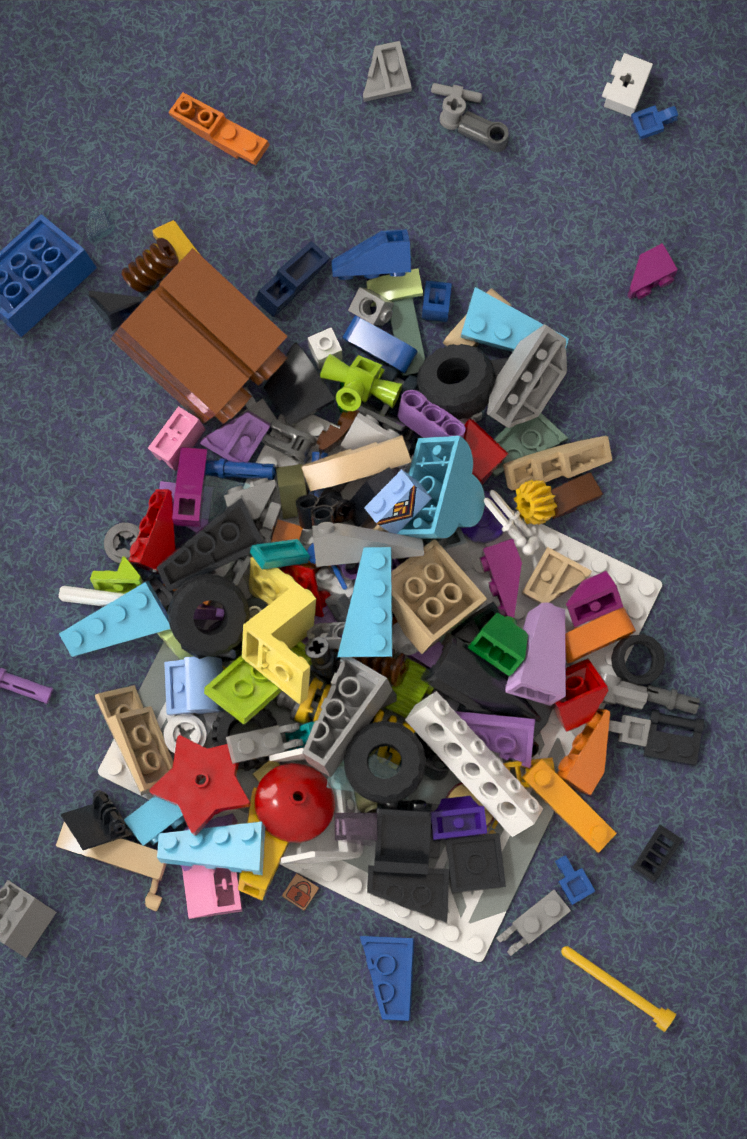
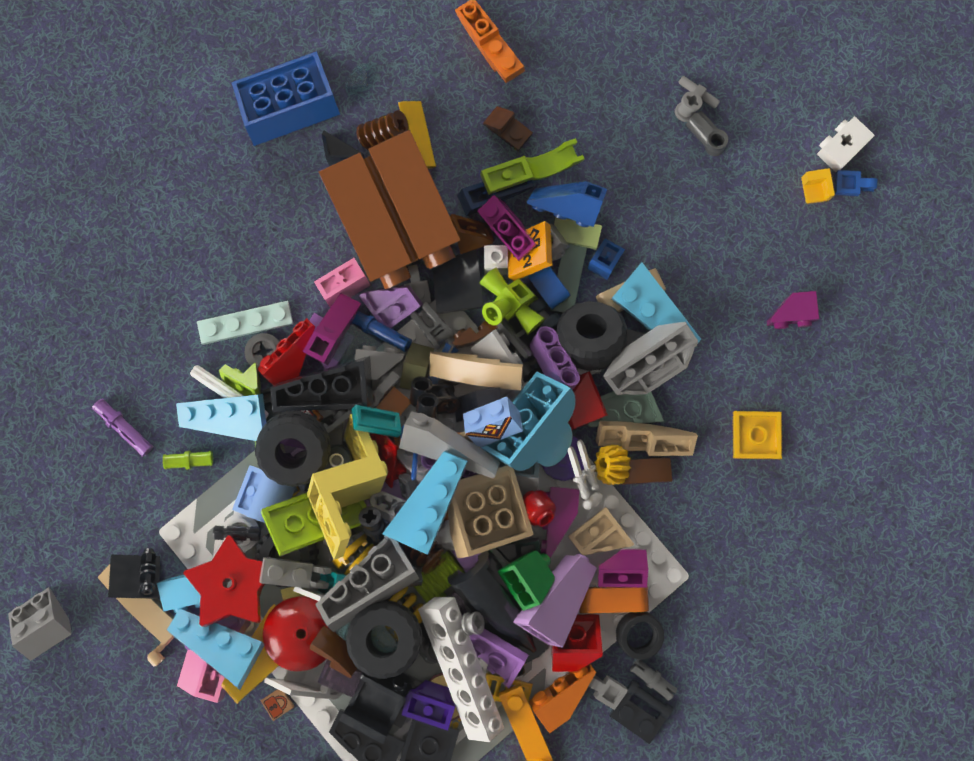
camera: 30 degrees right, 5 degrees up
(92, 522) = (245, 322): none -> light aqua plate
(96, 686) = (188, 460): none -> lime pin
(136, 736) = (196, 515): tan slope -> none
(188, 731) = (239, 533): none -> black axle
(276, 210) = (504, 125): none -> reddish brown slope
(295, 329) = (472, 233): none -> reddish brown slope
(320, 241) = (533, 168): none -> lime piece
(323, 309) = (507, 227): none -> magenta slope
(341, 796) = (334, 649): none -> reddish brown slope
(356, 323) = (538, 258): none -> light orange tile
(387, 73) = (649, 51): light grey wing -> none
(465, 709) = (472, 623): none -> light grey bush
(481, 571) = (539, 508): none -> red head
(618, 138) = (817, 186): none -> yellow panel
(624, 692) = (616, 657): light grey piece -> none
(668, 412) = (757, 435): none -> yellow plate

